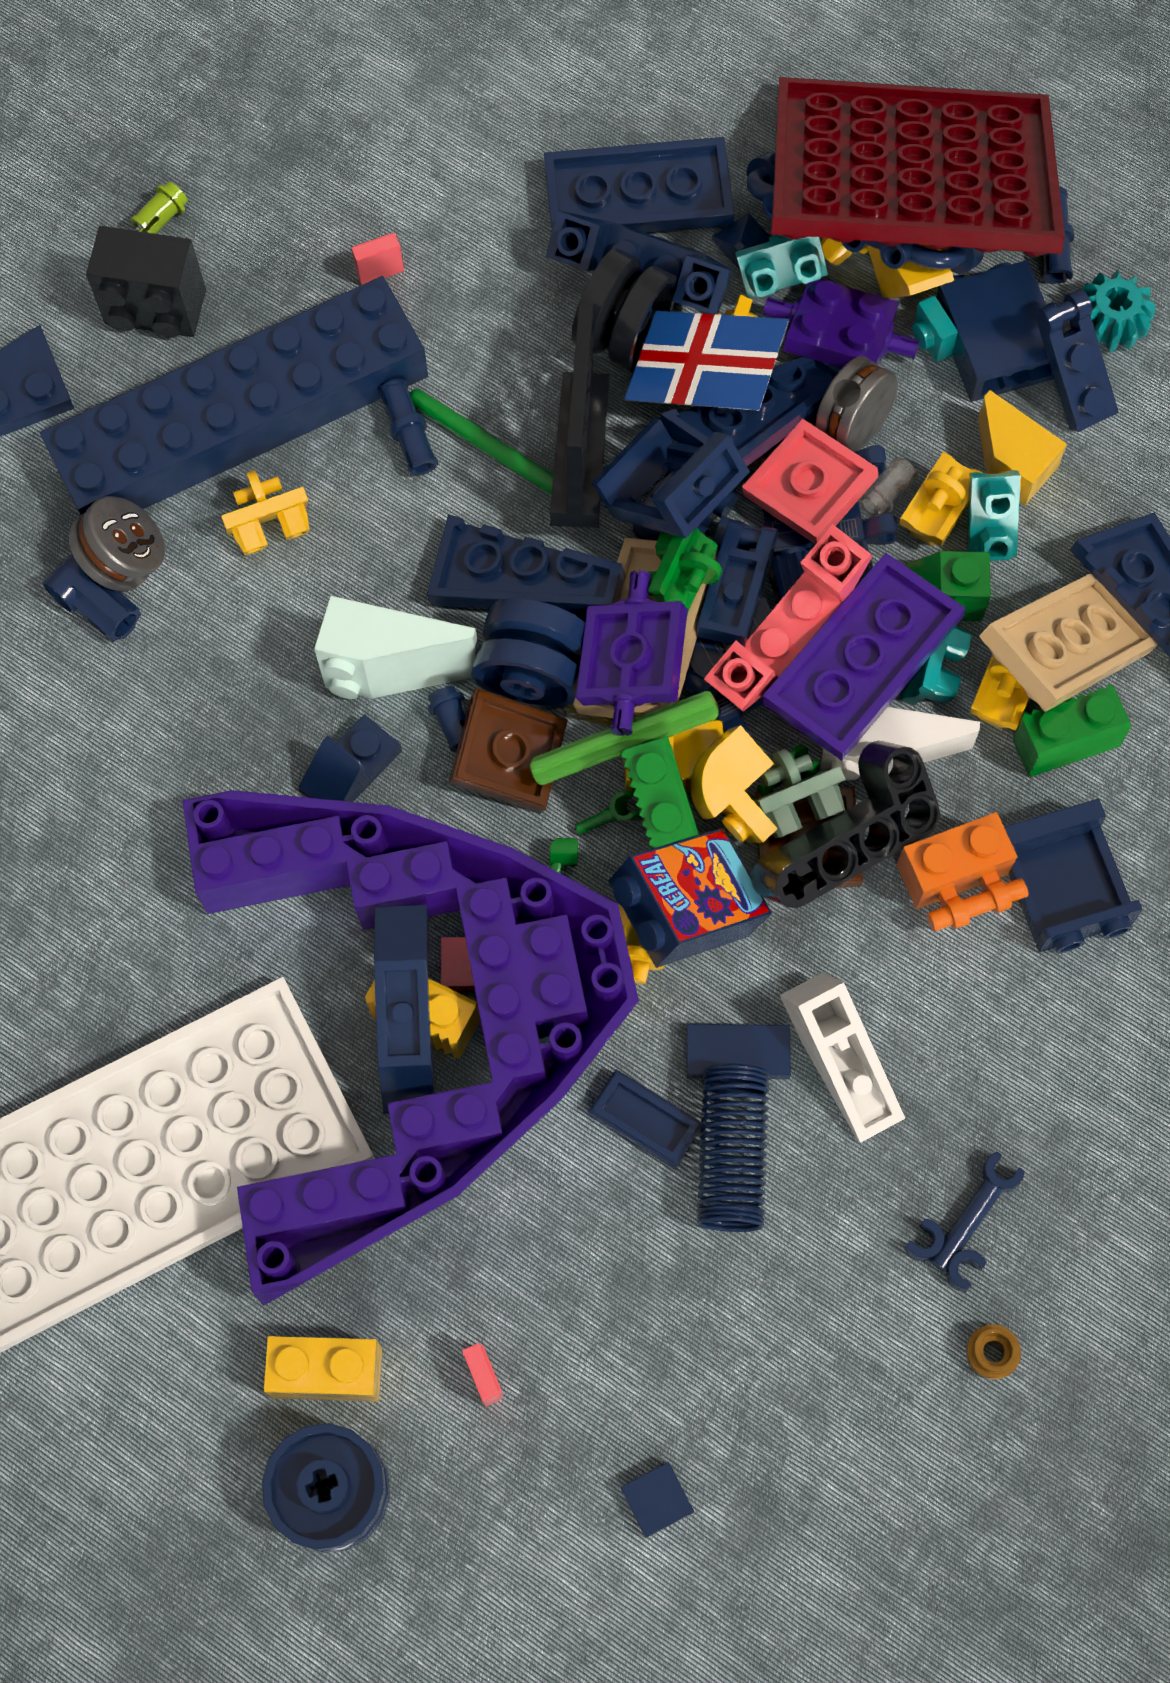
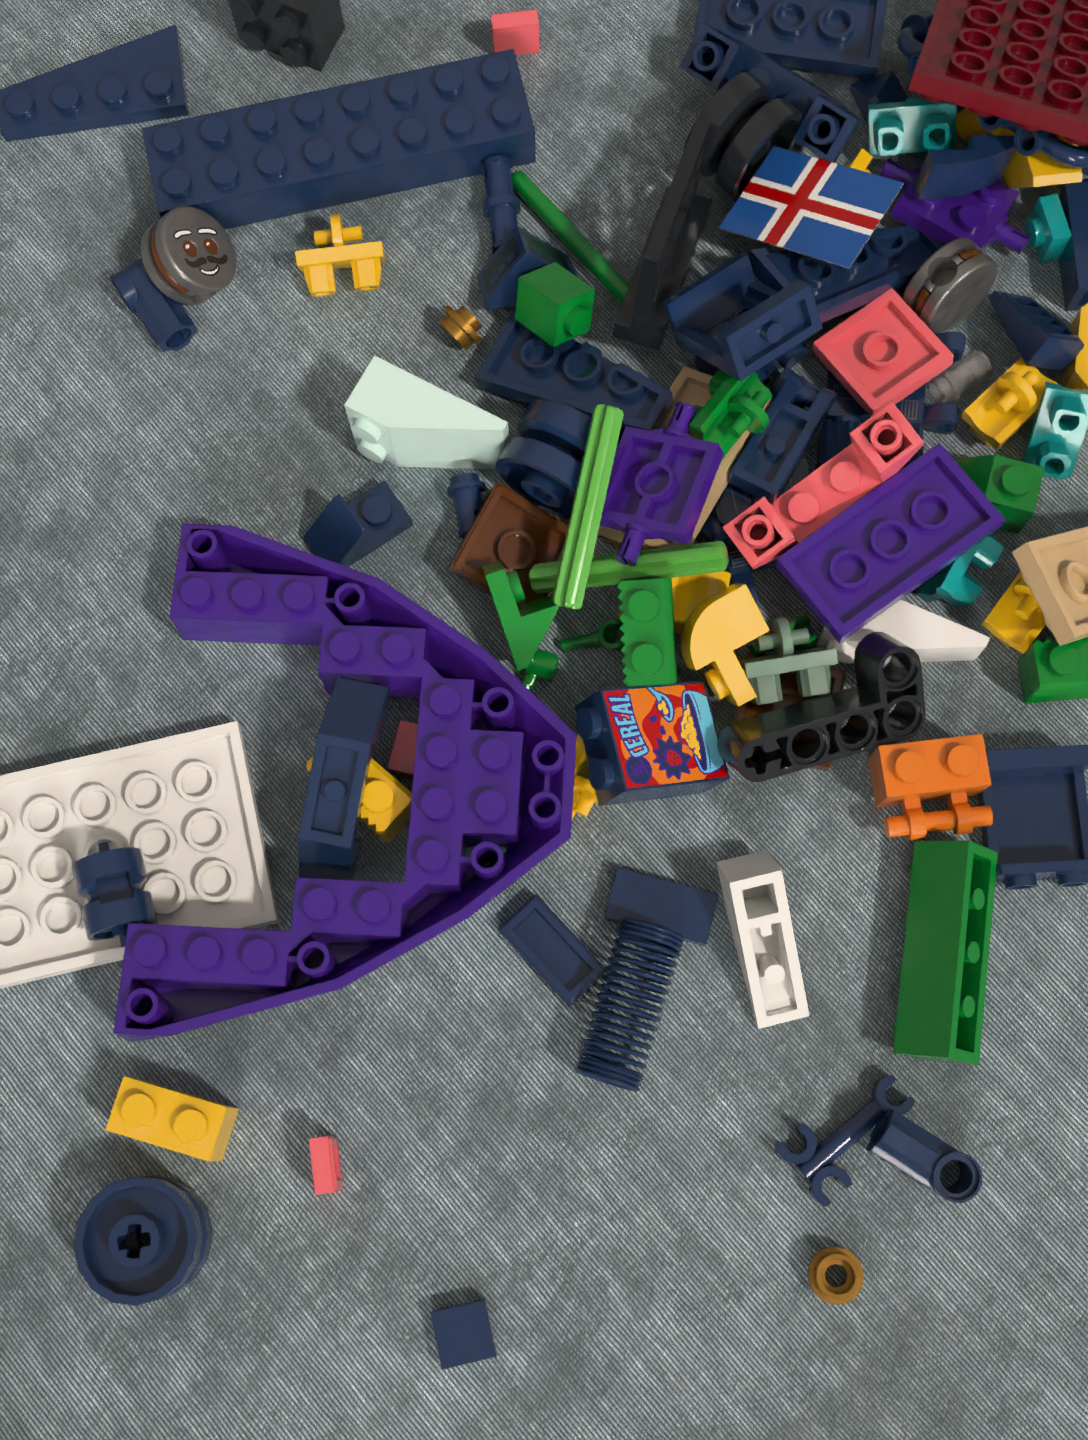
camera: 15 degrees right, 5 degrees up
(209, 1162) = (113, 891): none -> dark blue wheel
(400, 550) = (462, 326): none -> pearl gold plate
(447, 484) = (514, 258): none -> dark blue slope
(487, 508) = (554, 304): none -> green brick
(535, 818) = (522, 624): none -> green slope
(572, 689) = (588, 506): none -> bright green axle
(841, 295) = (964, 171): none -> dark blue slope
(948, 429) = (1036, 332): none -> dark blue slope
(1016, 1023) = (945, 952): none -> green brick
(1044, 1217) = (923, 1157): none -> dark blue piece

